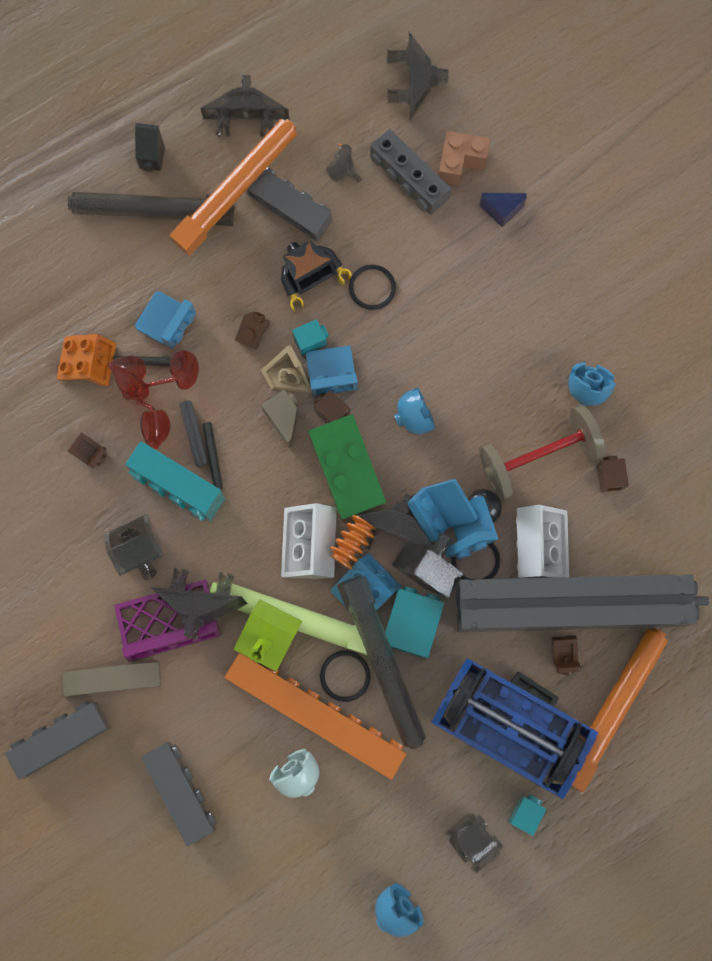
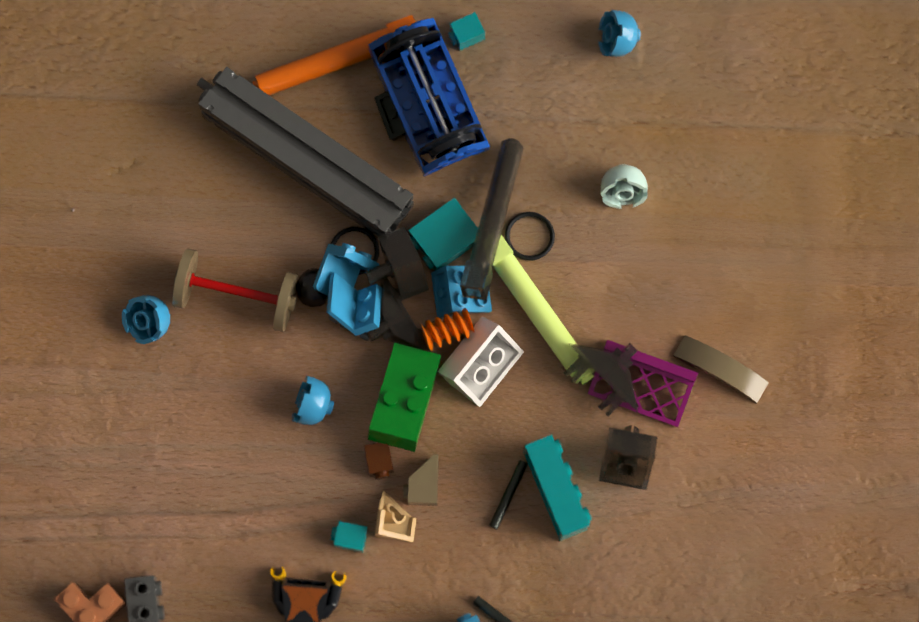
camera: 145 degrees left, 0 degrees up
(58, 740) = (795, 347): dark grey brick -> none
(87, 450) = (612, 574): reddish brown bracket -> none
(128, 376) = (530, 598): clear red plant -> none
(178, 793) = (726, 238): dark grey brick -> none
(193, 433) = (510, 526): dark grey axle -> none
(252, 329) = (393, 582): reddish brown bracket -> none
(267, 635) = (570, 305): lime brick -> none
(316, 716) = (576, 222): orange brick -> none
(331, 370) = (353, 494): dark azure bracket -> none
(366, 306) = (258, 524): black tyre -> none
(474, 842) = (523, 40): clear smoke brick -> none
(502, 205) = (91, 532): clear blue slope -> none
(542, 542) = (291, 221): white slope -> none
(565, 654) = (343, 123): reddish brown bracket -> none
(612, 474) = (189, 234): reddish brown brick -> none

